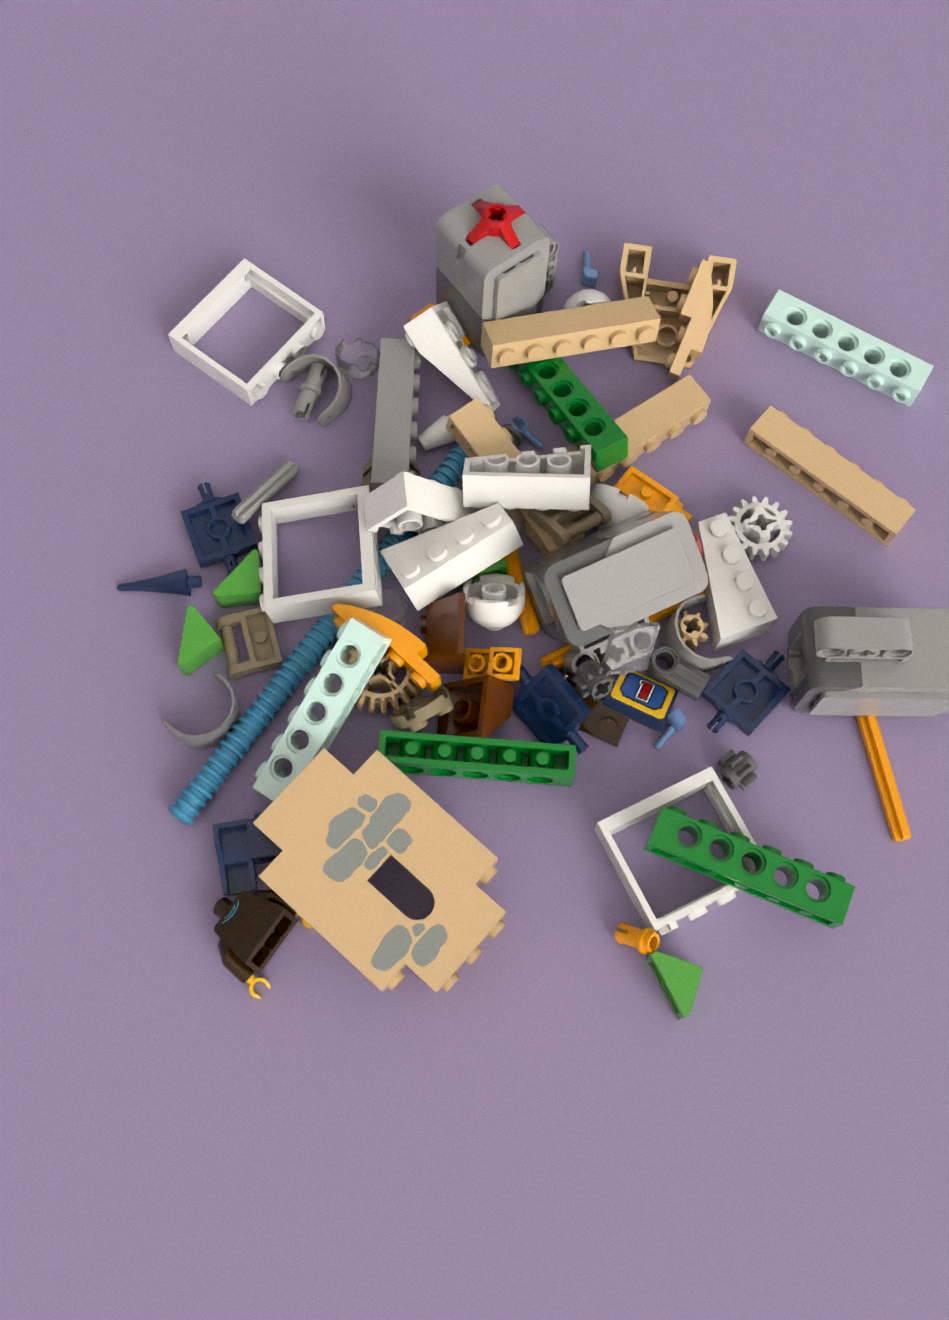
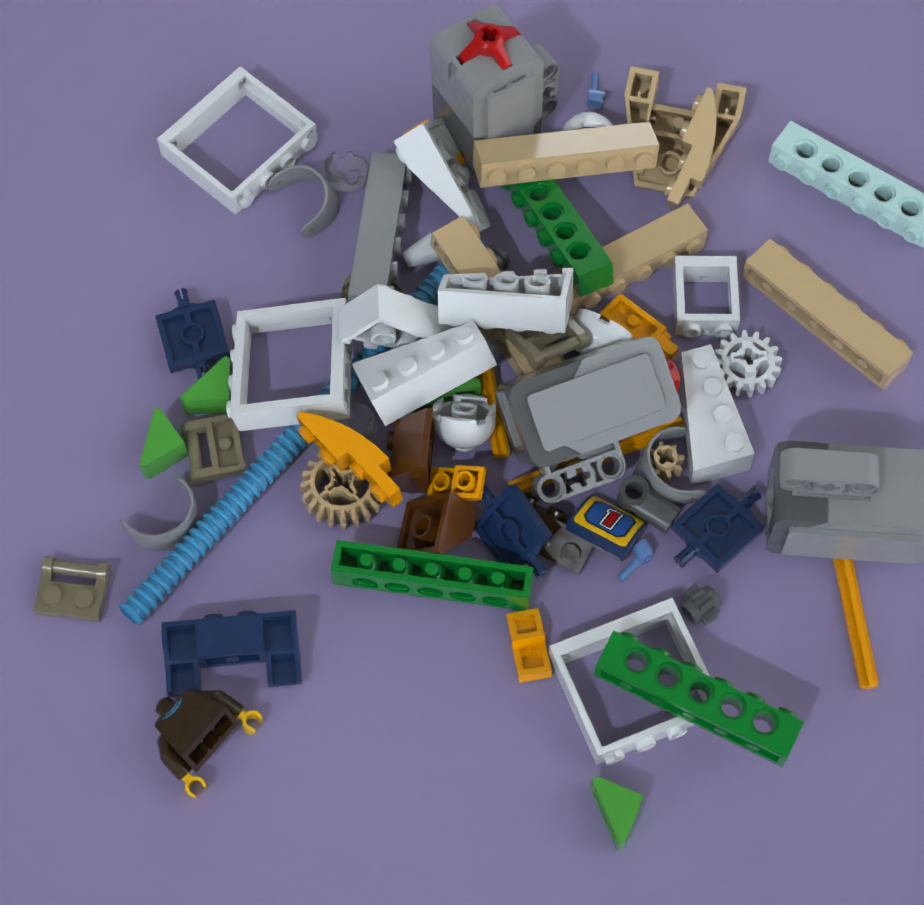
camera: 10 degrees right, 5 degrees down
(118, 803) = (72, 599): none -> dark tan plate
(174, 583) = (143, 386): dark blue piece -> none
(265, 492) = (241, 300): light grey axle -> none
(309, 391) = (295, 203): light grey pin -> none
(321, 733) = (295, 514): light aqua brick -> none
(341, 831) = (284, 635): tan panel -> none
(420, 709) = (372, 528): dark tan plate -> none
(522, 426) = (511, 251): medium blue hand -> none
(574, 820) = (528, 645): none -> light orange slope
(593, 679) = (557, 502): dark grey gear -> none
(631, 647) = (597, 474): clear piece -> none
(645, 939) = (585, 765): light orange pin -> none
(713, 438) = (705, 270): none -> white window

